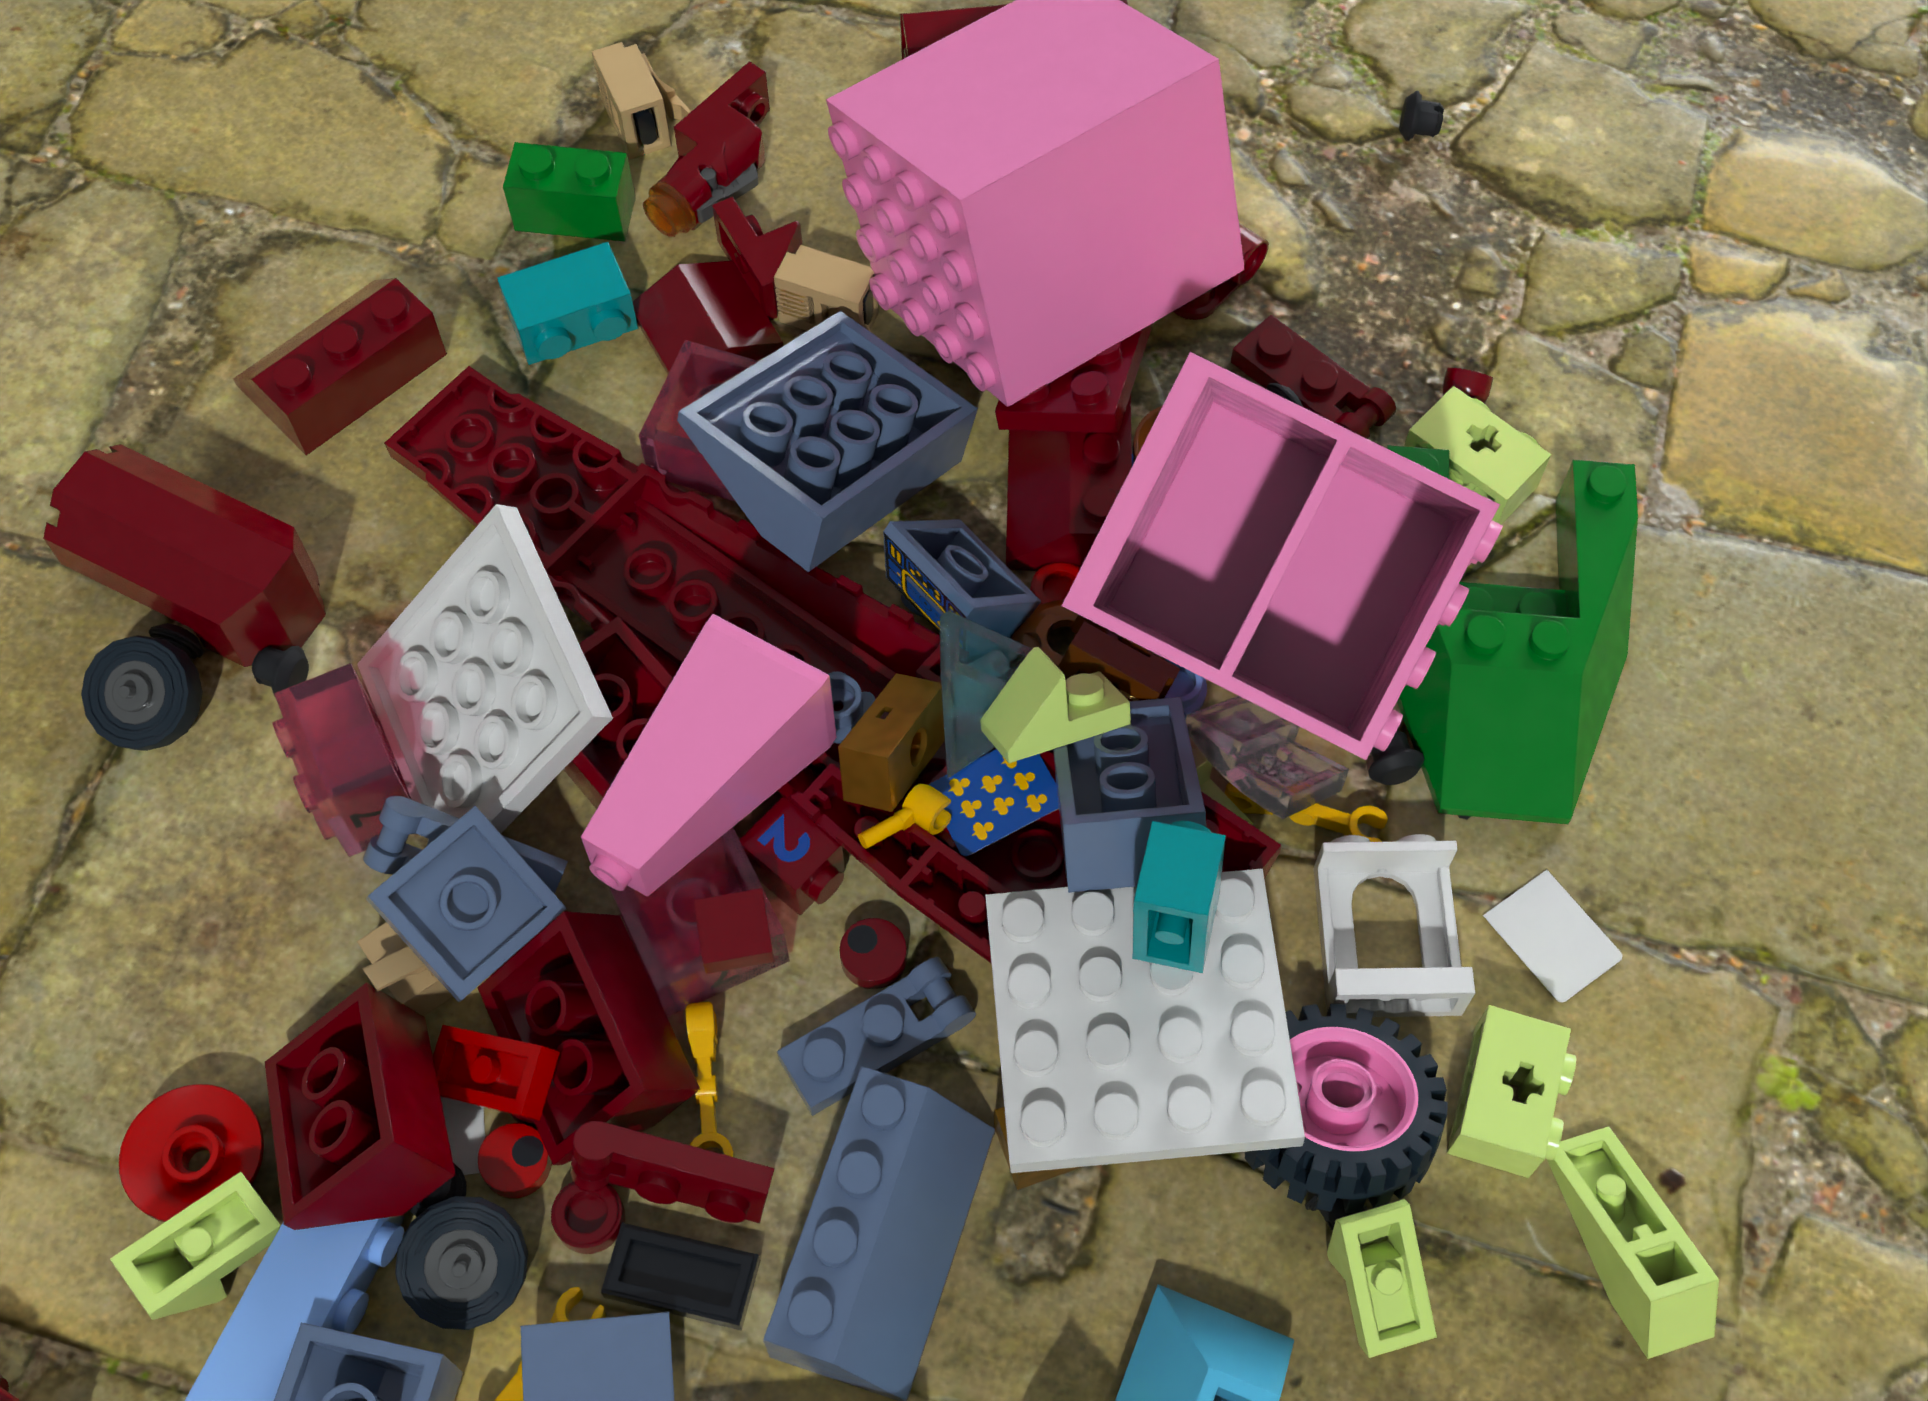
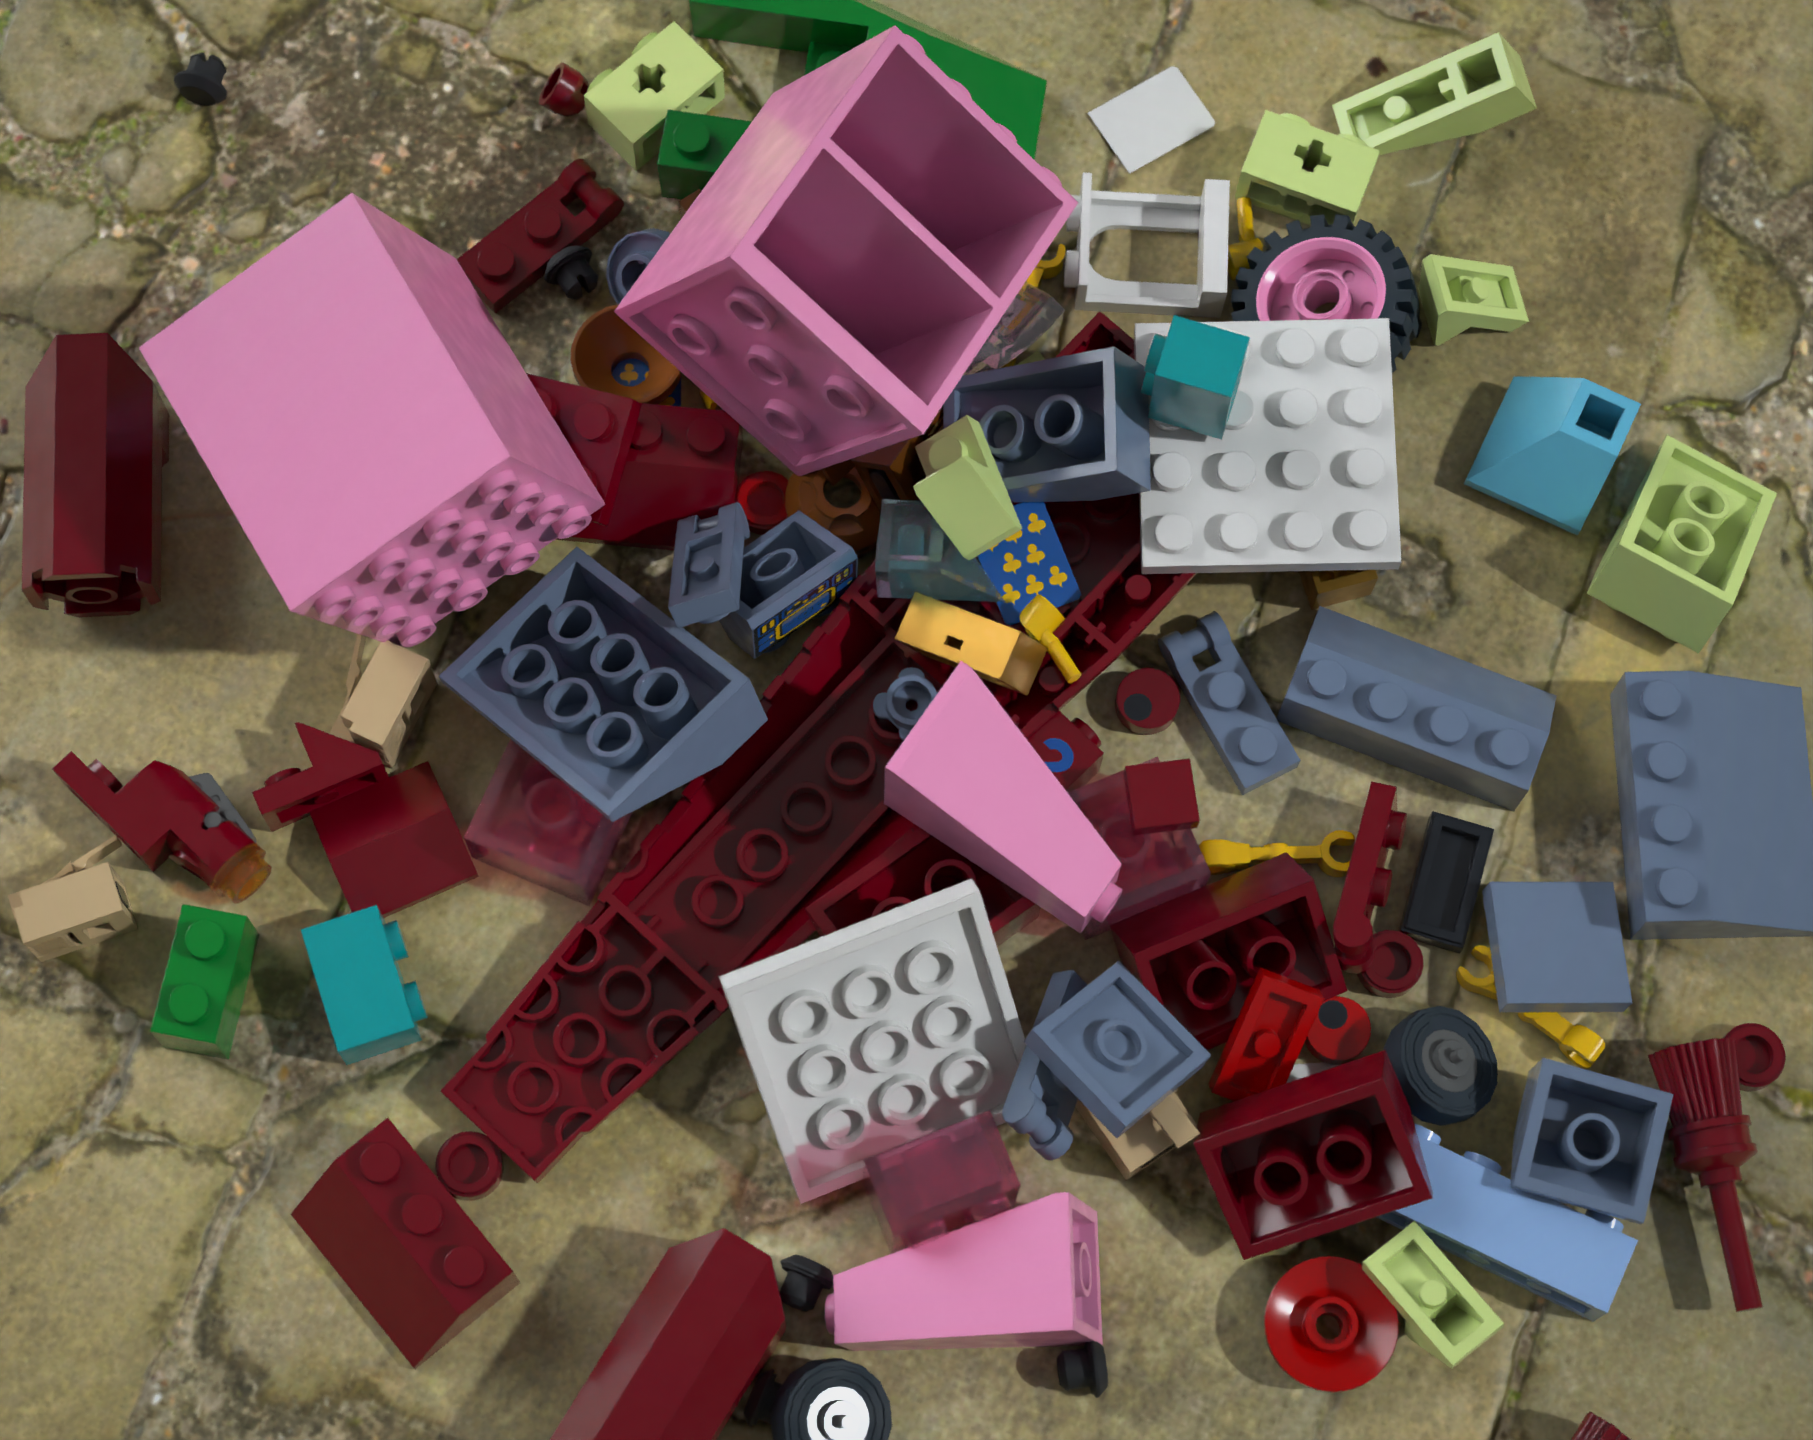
camera: 90 degrees left, 10 degrees up
(175, 920) = (1083, 1368): none -> black piece
(240, 828) = (988, 1285): none -> bright pink slope
(403, 399) = (469, 1165): none -> dark red tile
(961, 507) = (708, 566): none -> sand blue plate
(1426, 1034) = (1239, 251): none -> yellow hand

